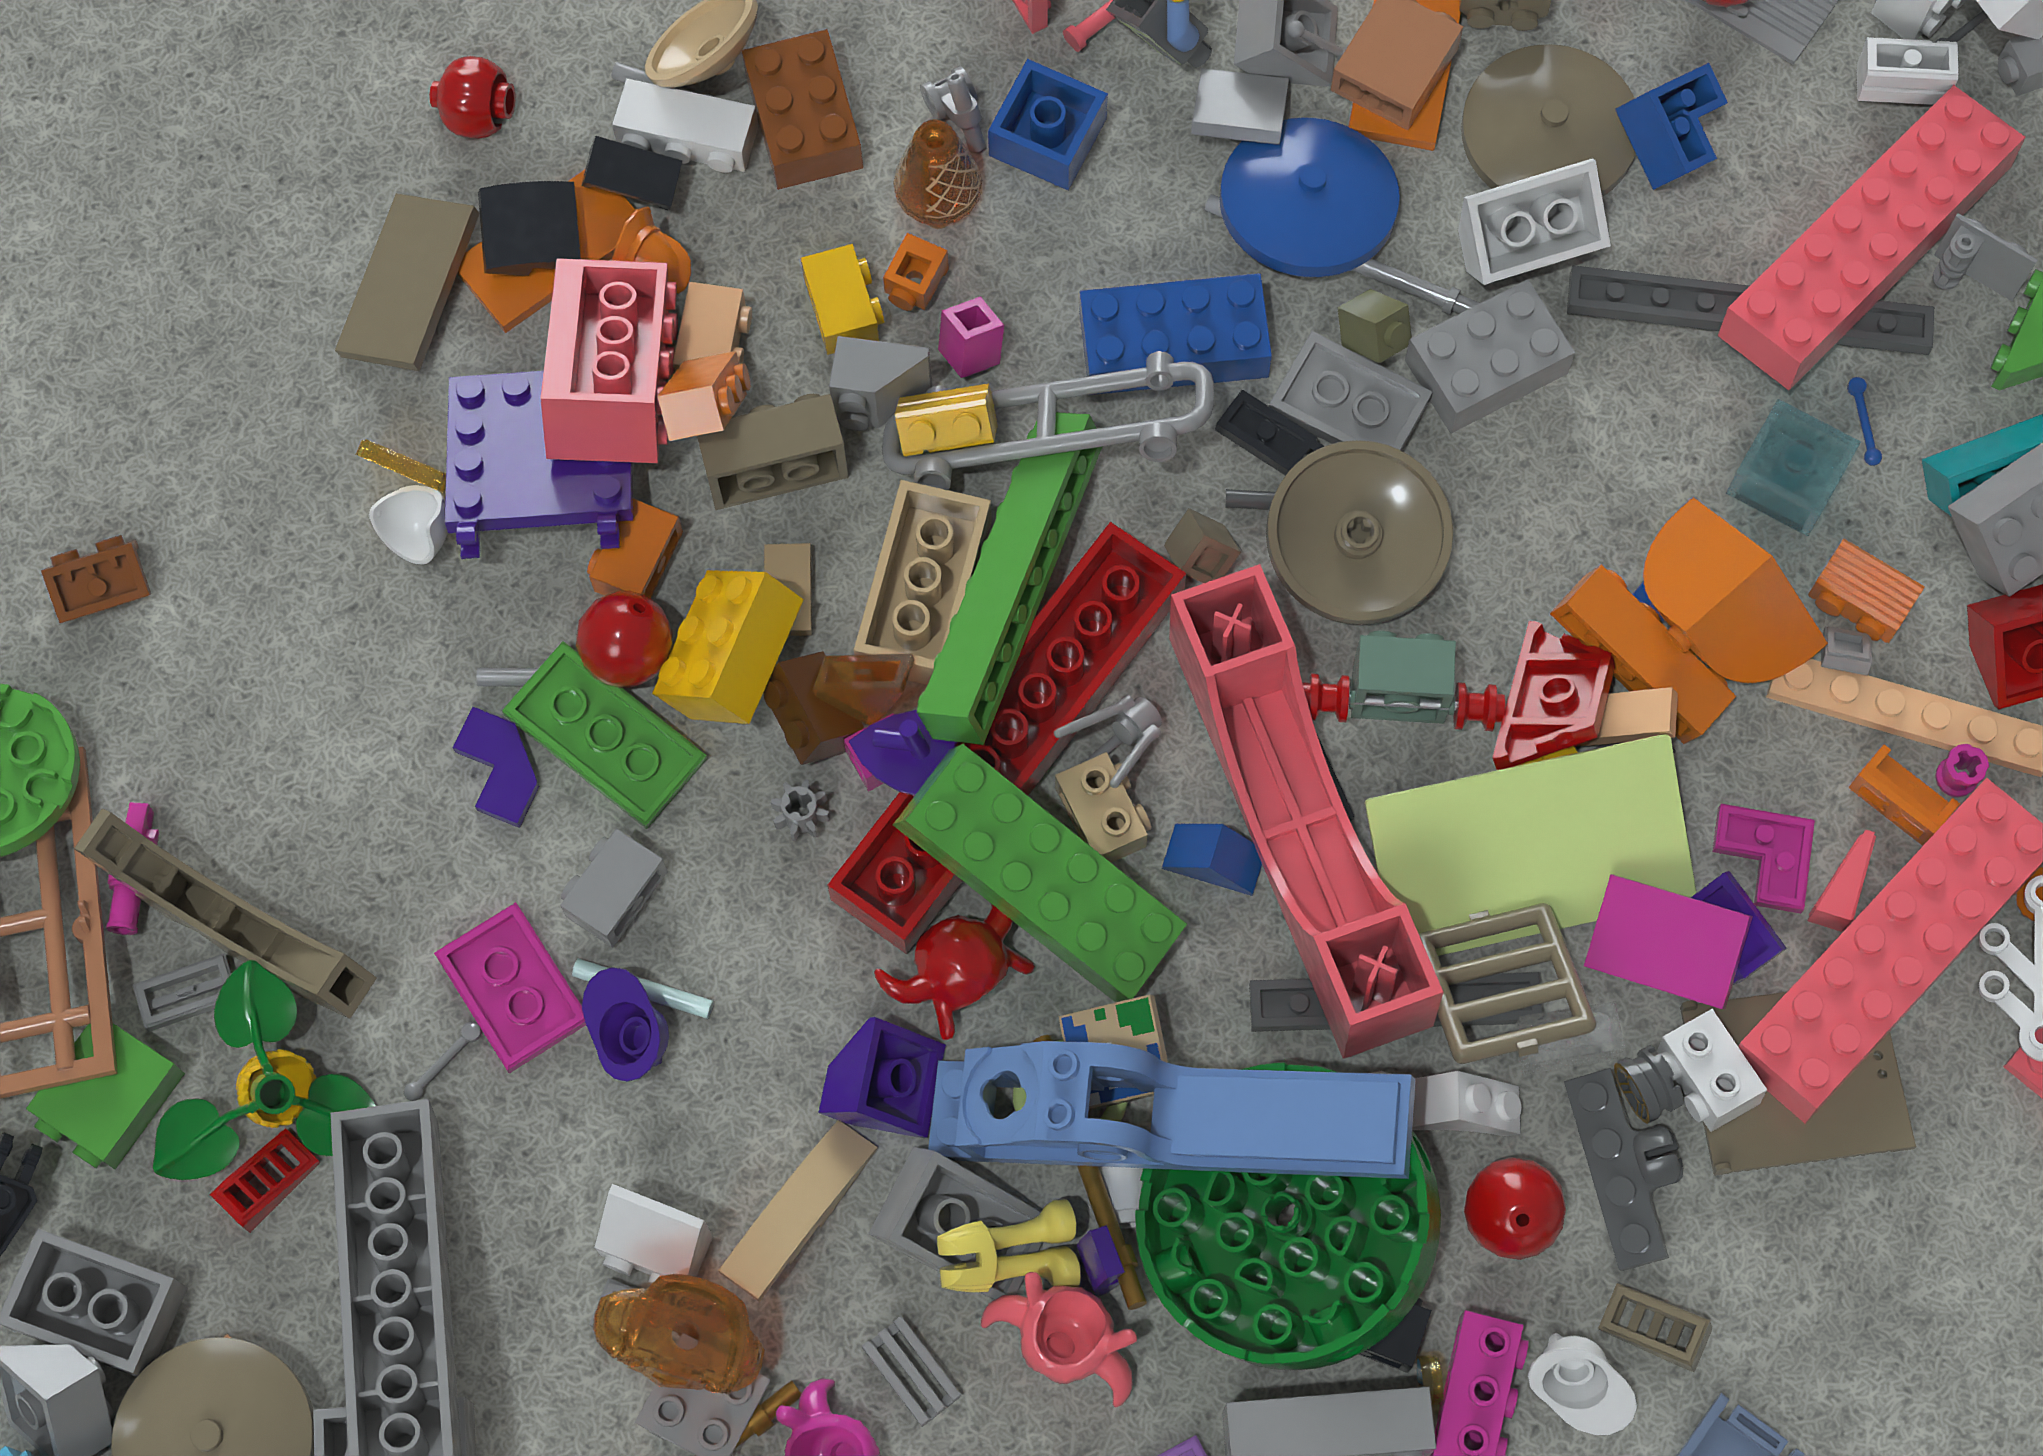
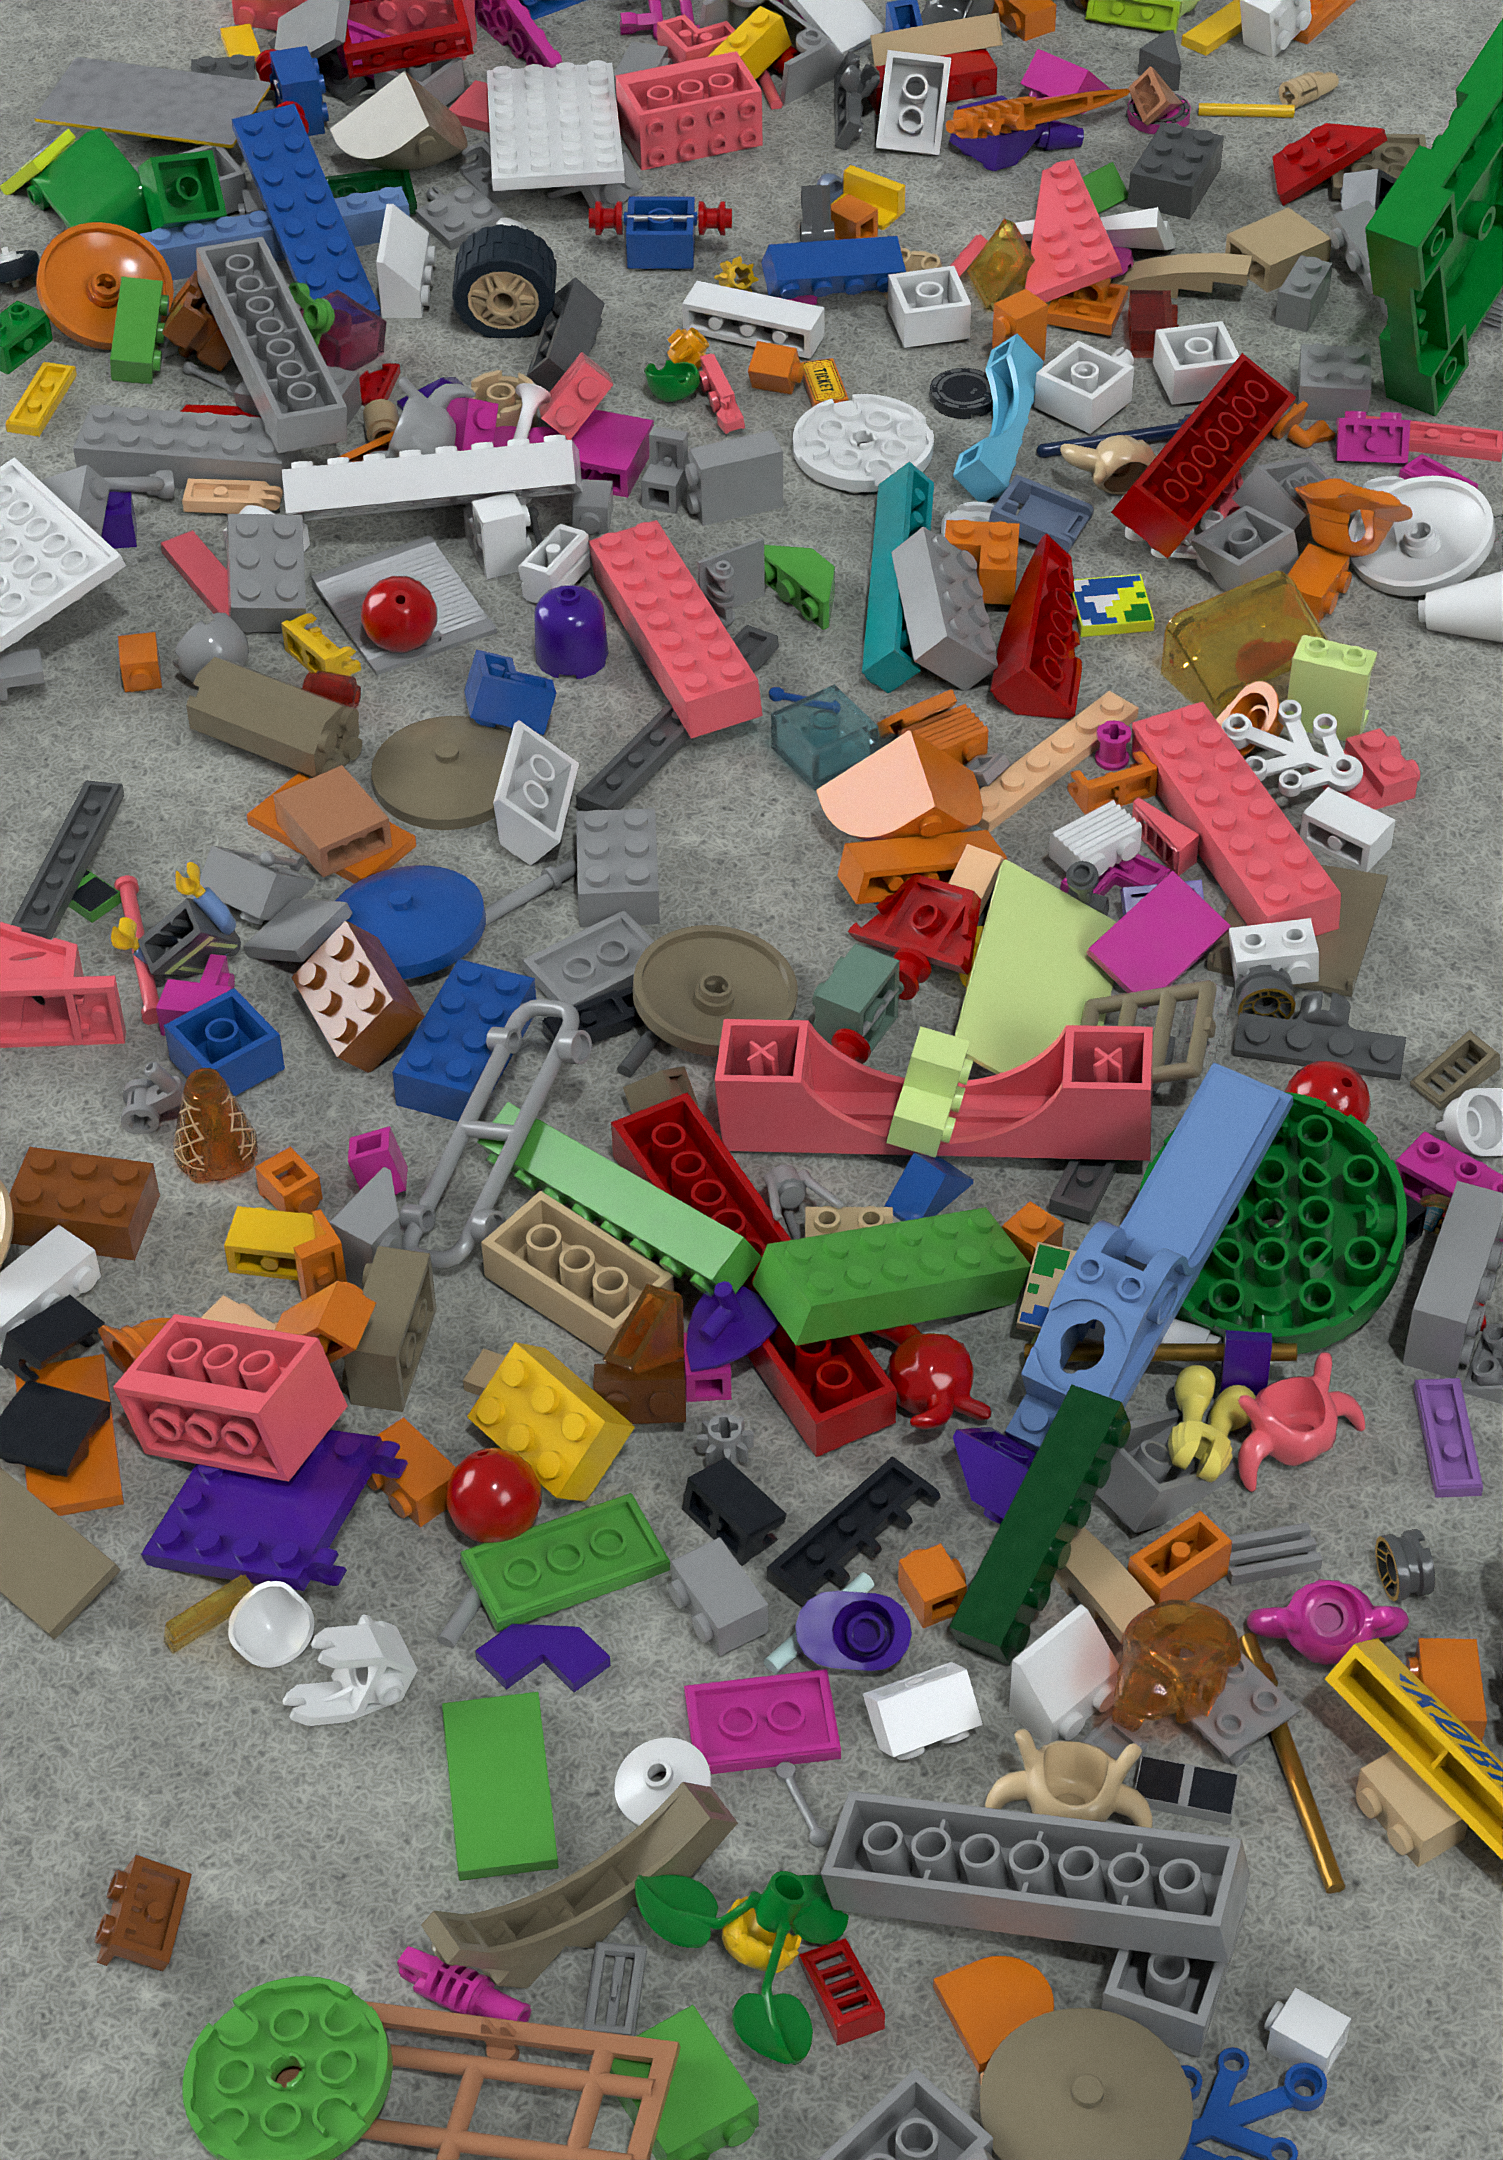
camera: 65 degrees left, 25 degrees down
(299, 1320) = (991, 2001): none -> orange tile
(349, 796) = (499, 1786): none -> bright green tile
(397, 627) = (369, 1674): none -> white piece
(419, 944) = (633, 1787): none -> white dish
(537, 1294) = (1072, 1782): none -> tan piece
(567, 1123) = (923, 1711): none -> white brick
(602, 1398) = (1187, 1789): none -> black tile
(721, 1071) = (932, 1584): none -> orange brick
(726, 854) = (732, 1508): none -> black hinge
(751, 968) = (849, 1530): none -> black hinge
(806, 1144) = (1041, 1525): none -> dark green brick
(812, 357) = (320, 1259): none -> orange panel
(836, 1290) = (1182, 1560): none -> orange brick
(946, 419) = (445, 1198): yellow brick -> none
(1089, 61) = (183, 996): none -> dark pink brick
(1164, 207) = (357, 997): none -> brick
(1183, 985) = (1031, 1226): none -> orange brick
(1293, 803) = (930, 1092): none -> yellowish green brick
(1374, 325) = (549, 915): olive brick -> none
(1691, 829) = (1082, 879): none -> dark grey hinge
(1782, 816) = (1097, 837): none -> white brick
(1807, 140) = (570, 632): none -> dark purple cylinder
(1880, 545) = (916, 713): none -> orange tile
(1968, 1075) = (1347, 830): none -> white brick

